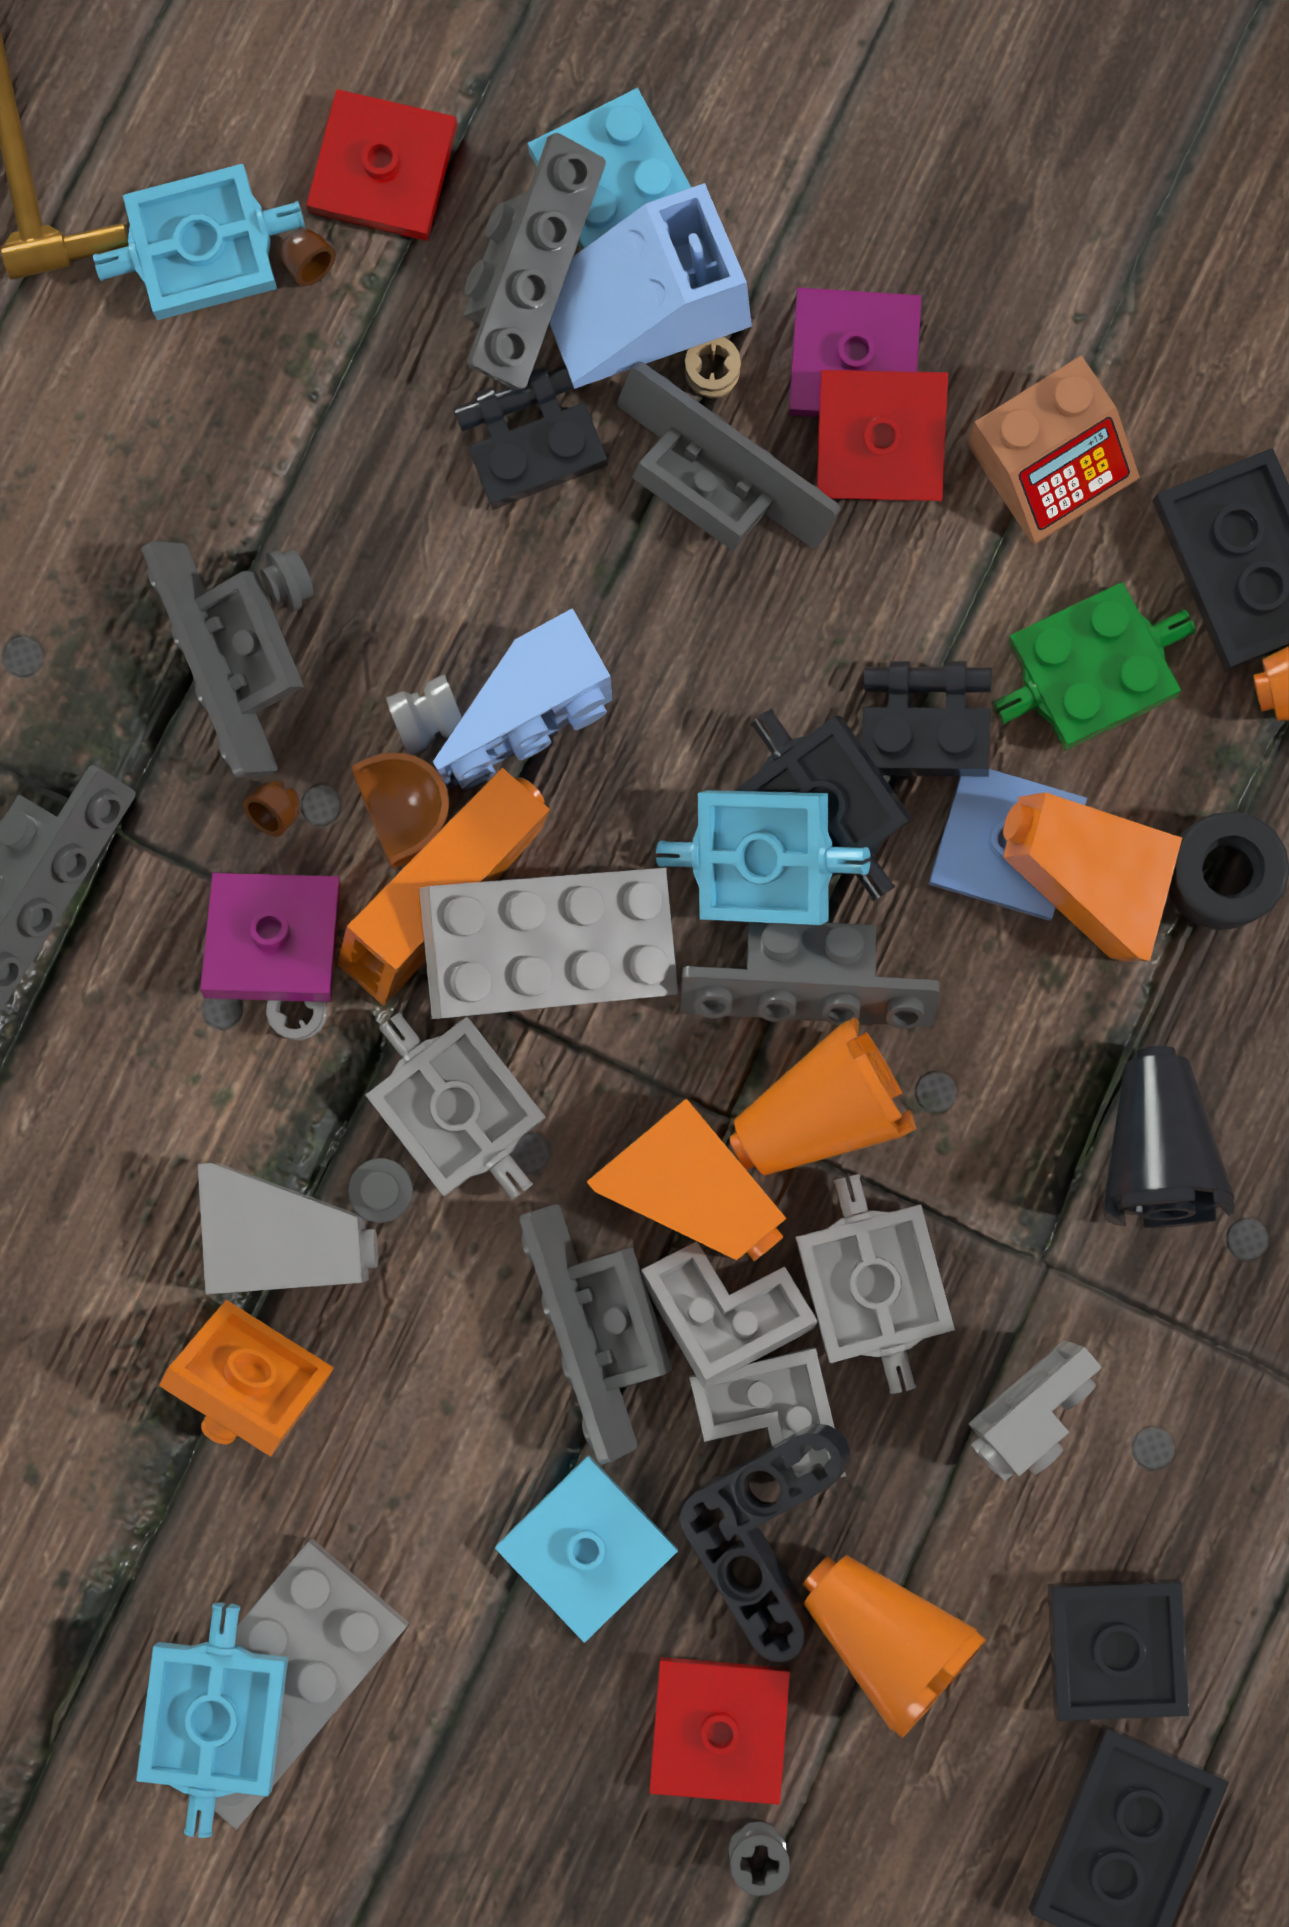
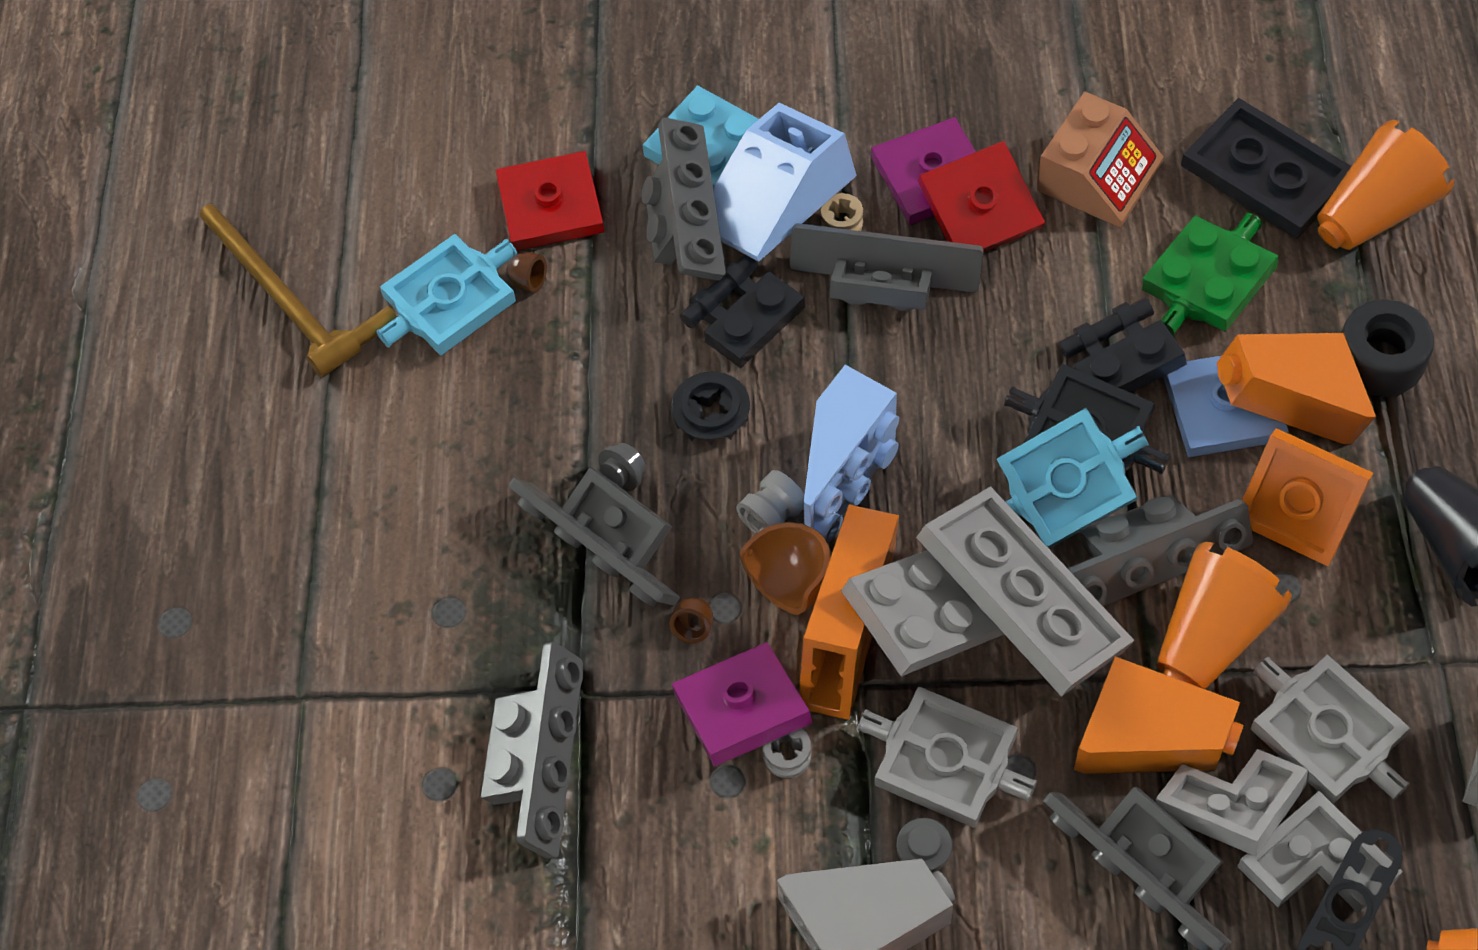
camera: 25 degrees left, 25 degrees down
(435, 522) = (705, 390): none -> black gear
(627, 979) = (1025, 590): none -> light grey plate
(1008, 1015) = (1304, 496): none -> orange tile

